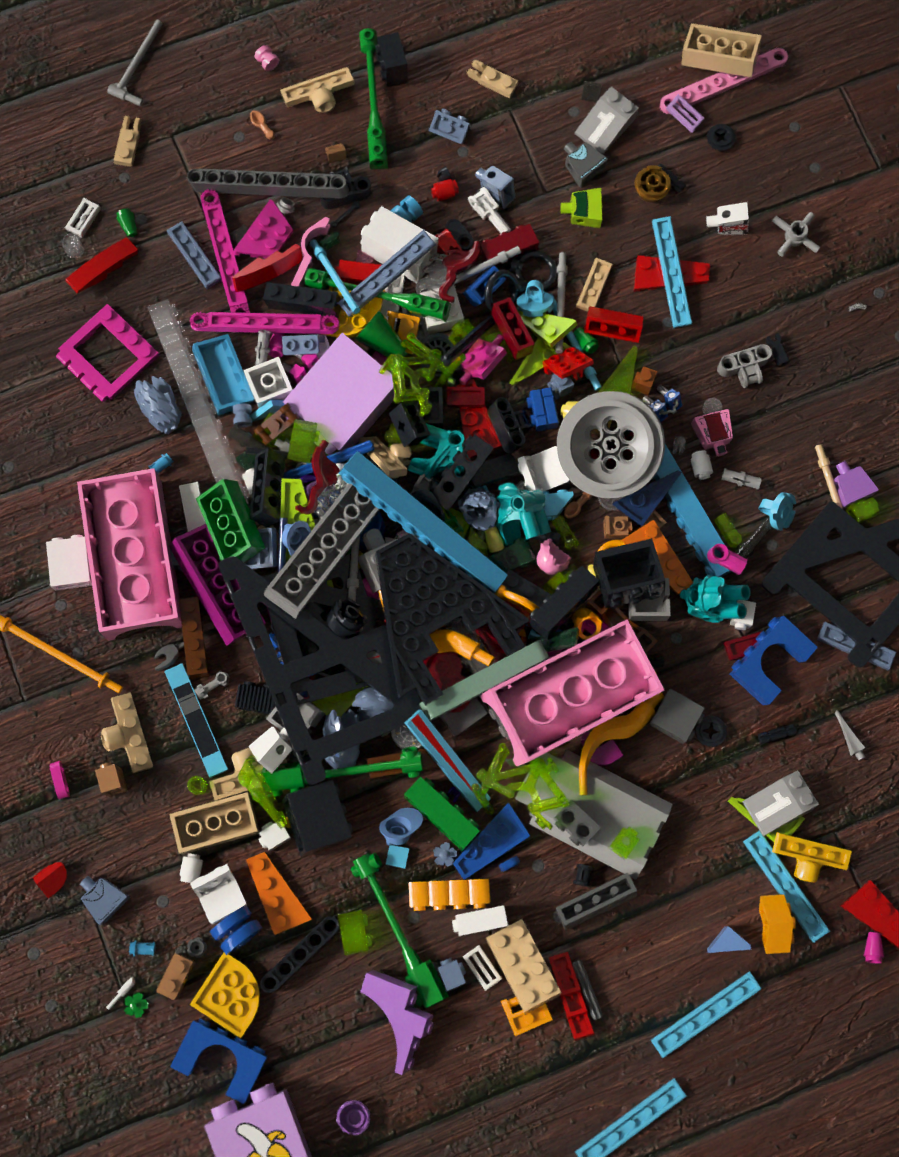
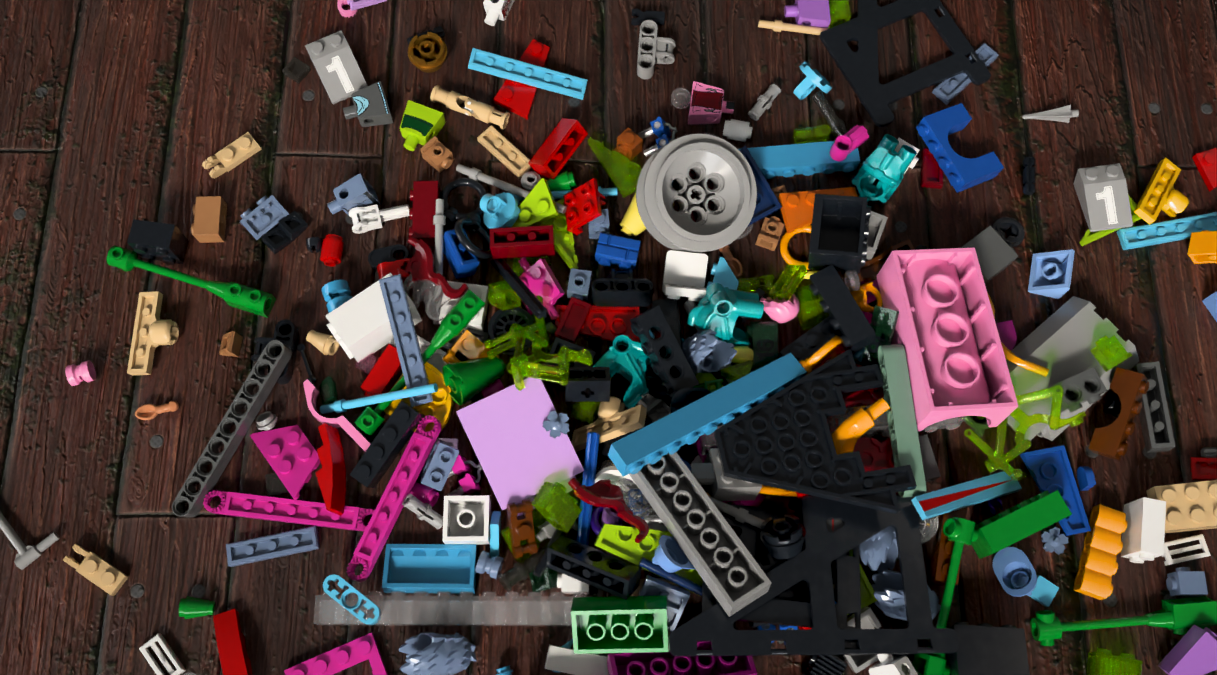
camera: 65 degrees left, 5 degrees down
(172, 316) = (342, 601): none -> medium azure beam
(365, 215) = (323, 342): none -> tan cone
(365, 412) = (556, 424): none -> sand blue plant
(429, 88) = (209, 219): none -> medium nougat brick
(445, 149) = (286, 232): none -> black slope
(499, 388) = (579, 284): none -> sand blue brick
(569, 228) = (430, 154): none -> medium nougat brick
(575, 556) = (788, 282): none -> clear neon green tile
(576, 310) = (530, 175): none -> light grey plate
(594, 602) = (852, 280): none -> clear tile
(598, 871) = (1112, 439): none -> reddish brown arch
(621, 252) = (479, 110): none -> tan piece
(686, 778) = (1051, 273): none -> light blue slope

